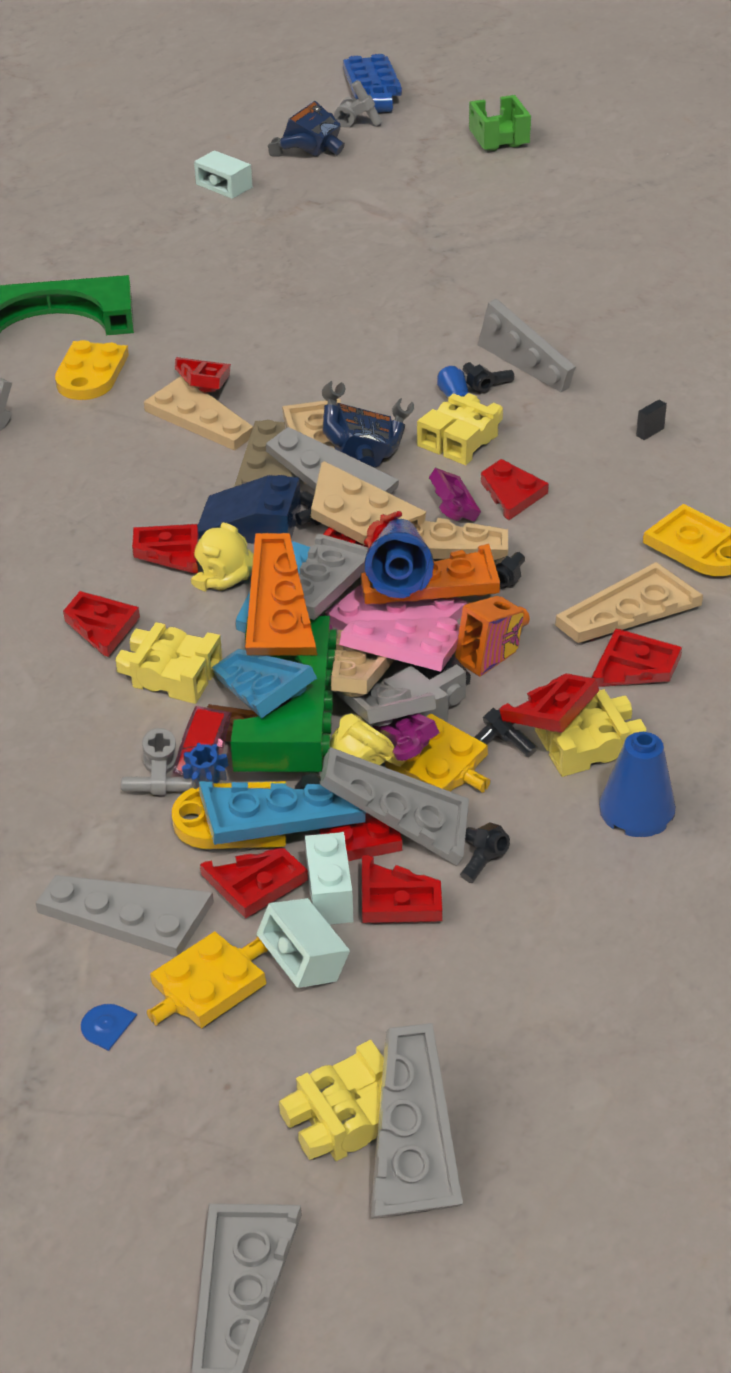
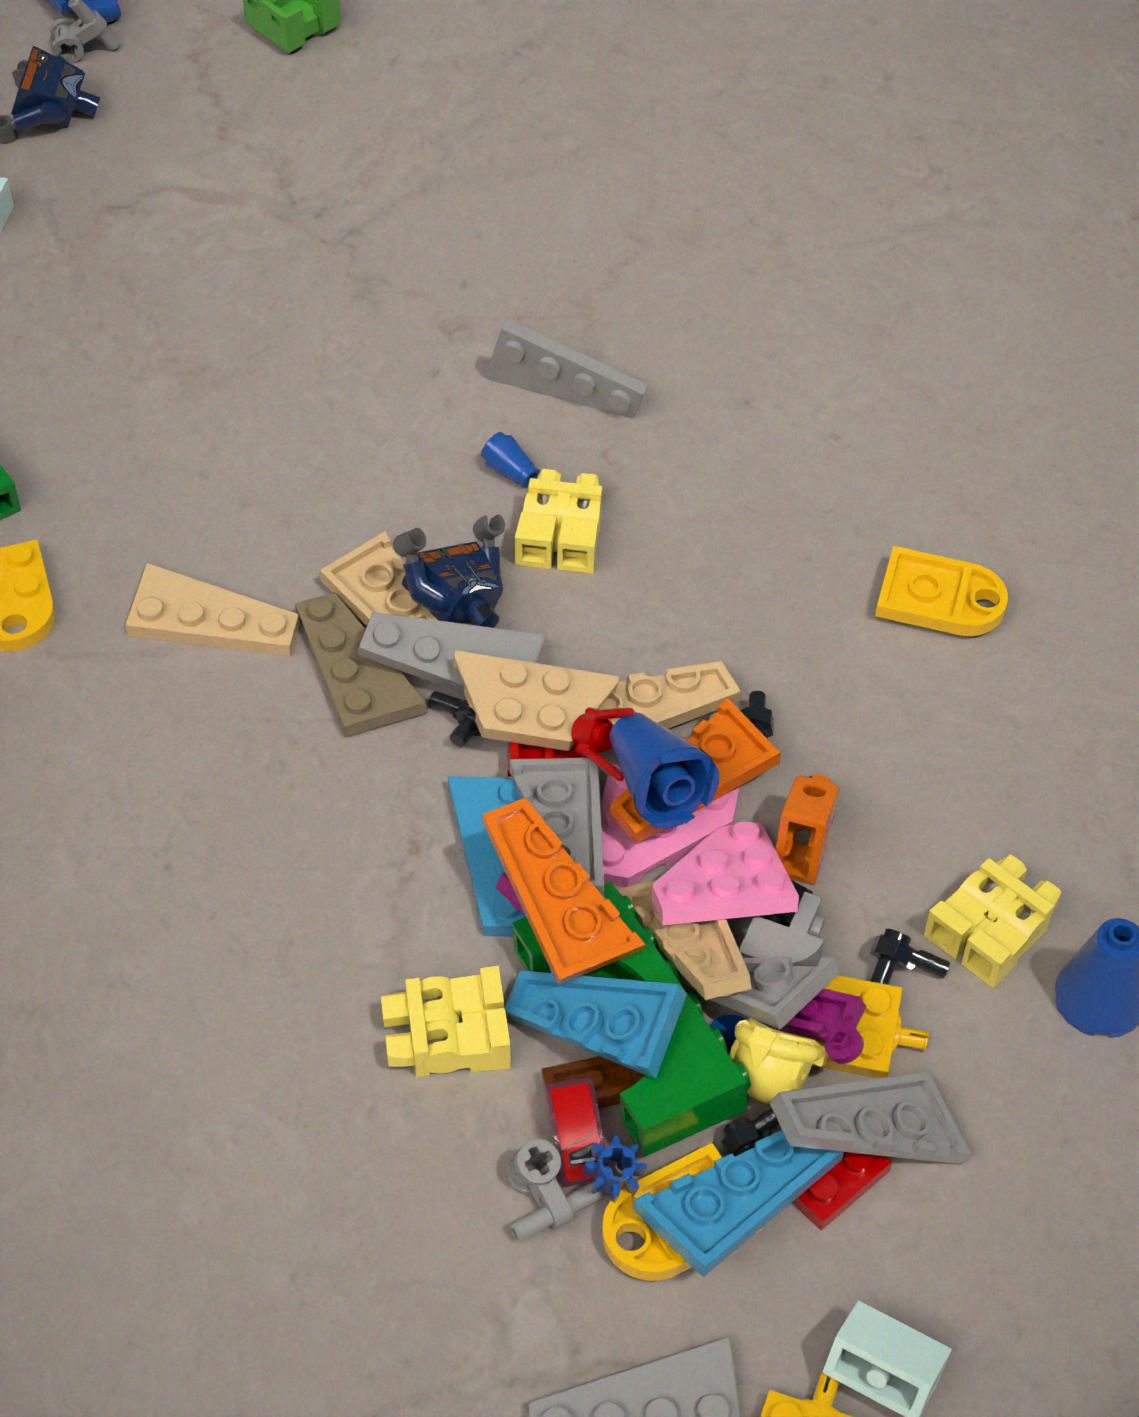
camera: 30 degrees left, 10 degrees up
(100, 620) = (313, 998): red wing -> none
(167, 545) = (321, 846): red wing -> none
(203, 374) = (177, 552): red wing -> none
(223, 558) = (411, 841): light yellow helmet -> none
(255, 507) = (389, 752): dark blue slope -> none
(255, 879) = (763, 1295): red wing -> none
(329, 877) = (853, 1255): light aqua brick -> none
(398, 895) = (935, 1239): red wing -> none
(455, 496) = (636, 642): magenta hinge -> none
(482, 379) = (533, 434): black piece -> none
(489, 842) = (990, 1121): black piece -> none
(512, 487) = (674, 589): red wing -> none
(554, 704) = (958, 909): red wing -> none
(630, 602) = (922, 712): tan wing -> none
(636, 660) = (979, 793): red wing -> none
(651, 419) = (775, 430): black tile -> none

